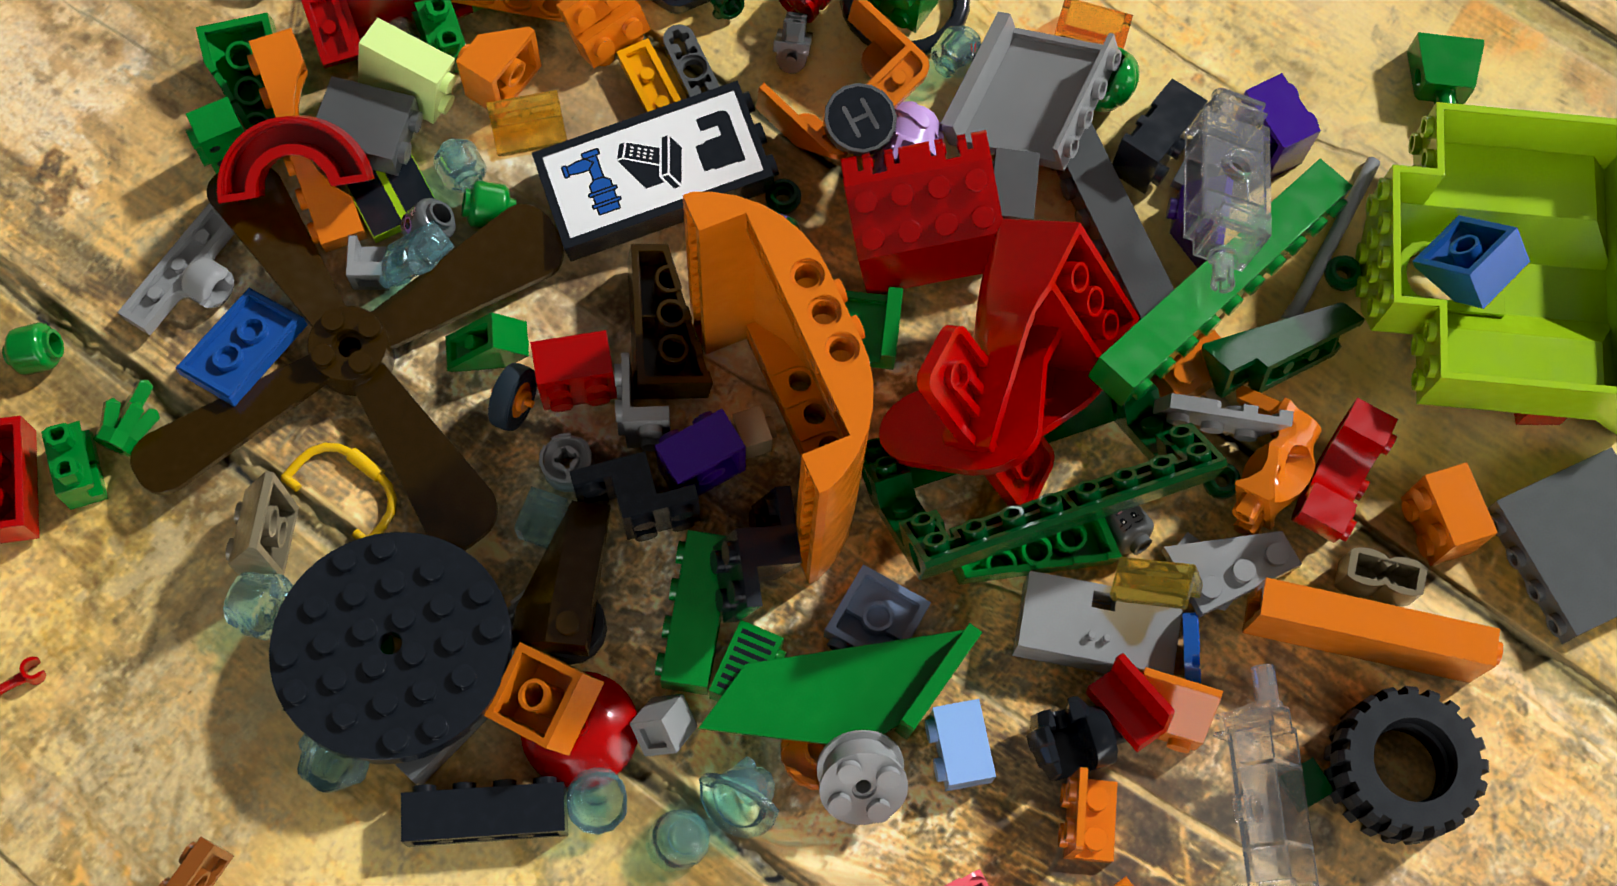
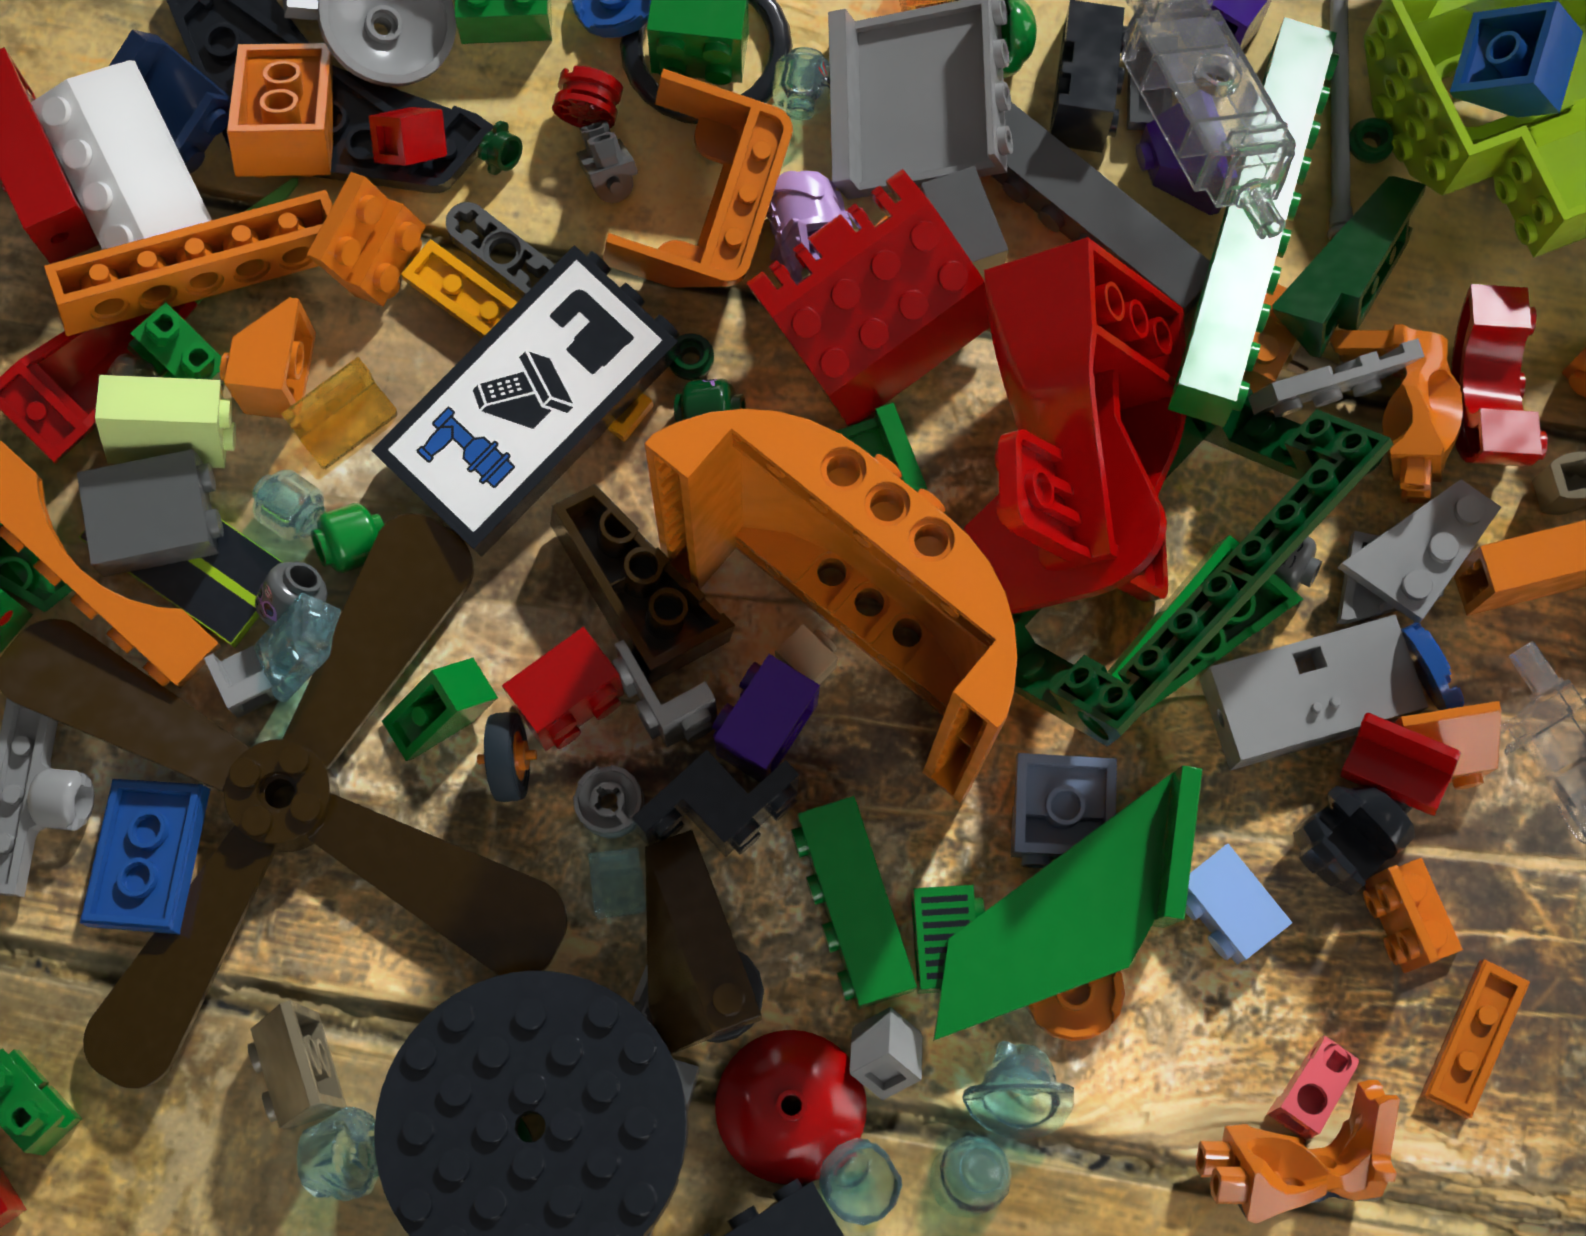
camera: 25 degrees left, 5 degrees up
(125, 427) = (58, 1017): green rock -> none
(262, 145) = (75, 575): red brick -> none
(361, 462) = (368, 923): yellow piece -> none
(544, 699) = (744, 1100): orange brick -> none
(756, 554) = (888, 819): black bracket -> none
(859, 119) = (744, 224): black tile -> none
(862, 777) = (1146, 1001): light grey wheel -> none
(1155, 583) = (1358, 613): clear yellow panel -> none

